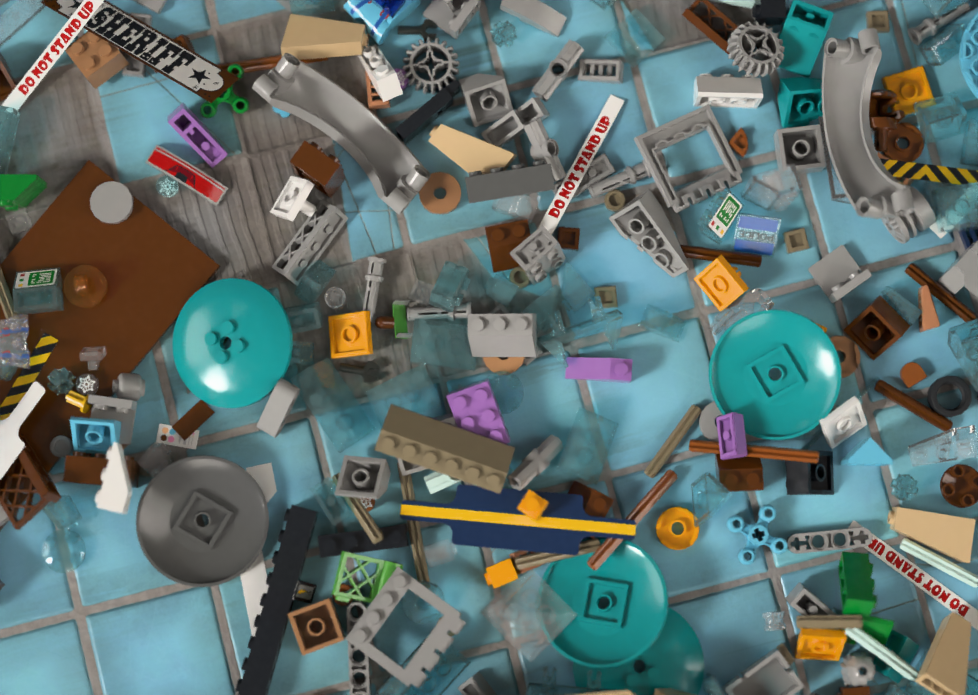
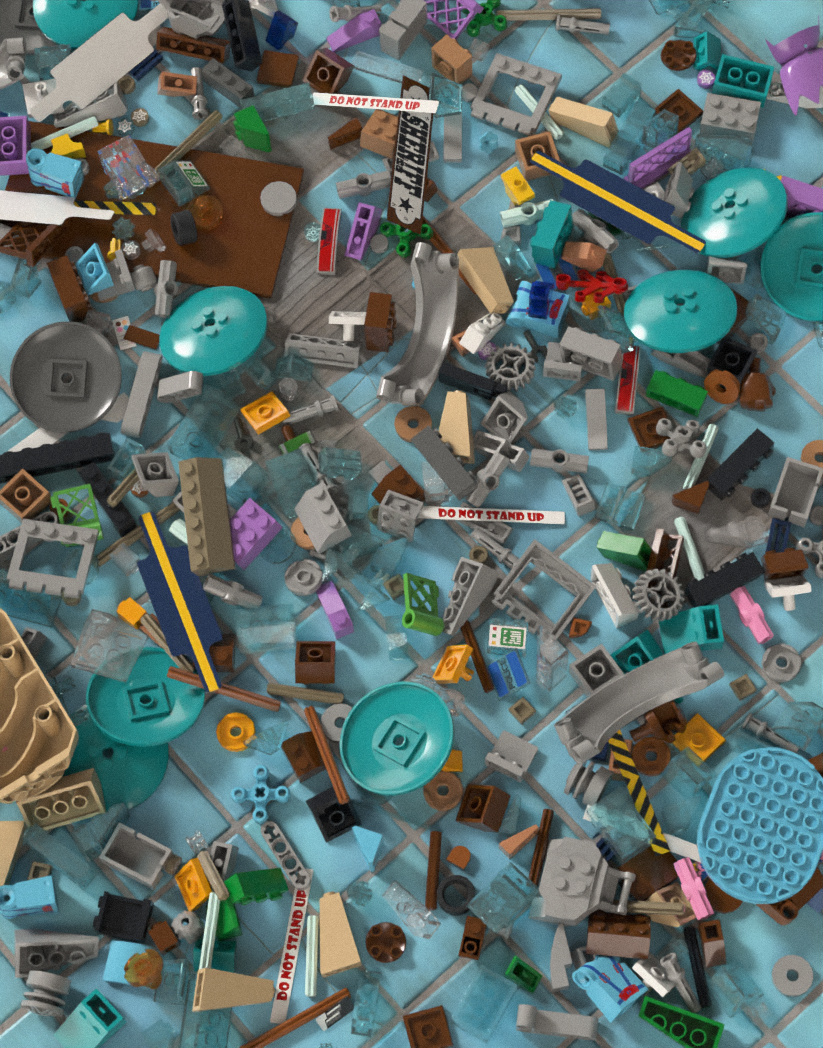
camera: 65 degrees right, 15 degrees down
(73, 92) = (346, 134): none -> reddish brown slope
(95, 317) = (183, 227): none -> black tyre
(116, 485) = (60, 297): white slope -> none
(139, 120) = (353, 186): none -> light grey piece
(154, 369) = (165, 288): none -> light grey piece
(218, 126) = (379, 243): none -> light grey tile
(261, 451) = (141, 394): none -> light grey beam
(304, 591) = (47, 477): sticker -> none
(478, 251) = (379, 472): none -> light grey tile
(533, 505) = (194, 602): light orange brick -> none
(550, 383) = (303, 577): none -> light grey tile
(569, 238) = (428, 535): reddish brown tile -> none
(647, 415) = (315, 662): none -> reddish brown slope
(659, 288) = (419, 617): none -> bright green piece
(686, 56) = (625, 549): none -> slope
(731, 436) = (330, 731): medium lavender slope -> none
(843, 422) = (387, 815): white tile -> none

